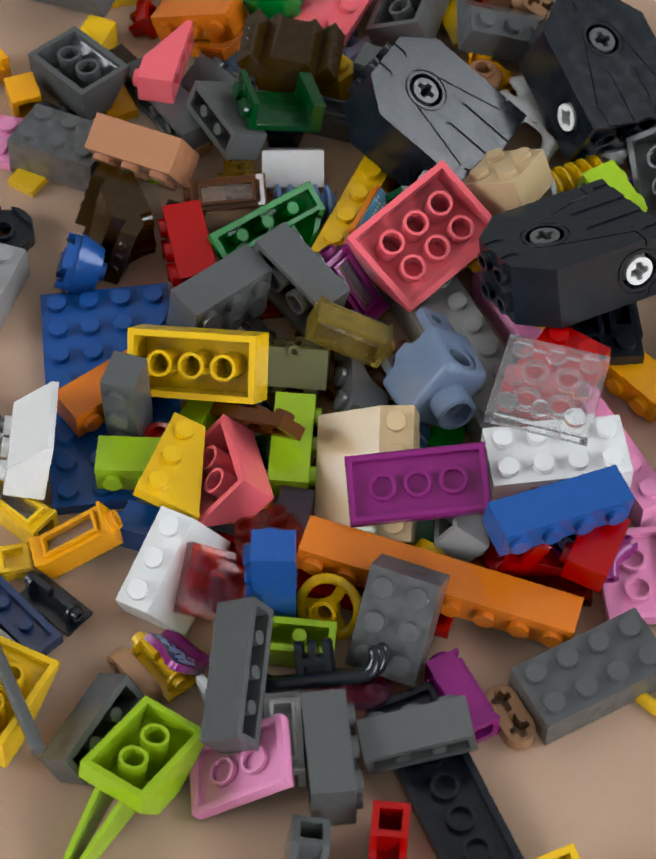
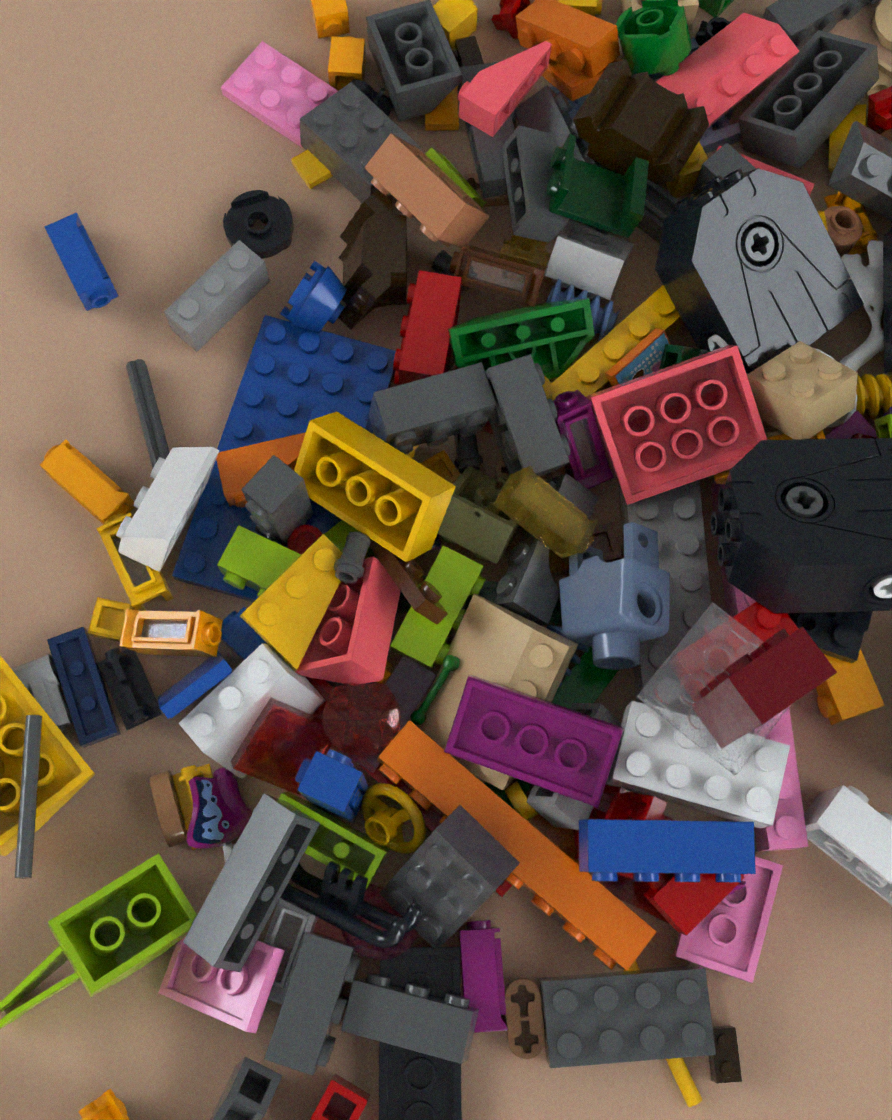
camera: 20 degrees right, 20 degrees up
(90, 721) = (99, 855): dark grey brick -> none
(114, 569) = (193, 685): none -> blue tile
(208, 424) = (350, 564): none -> dark grey pin
(323, 475) = (450, 664): none -> green hinge
(570, 345) = (761, 685): none -> dark red brick

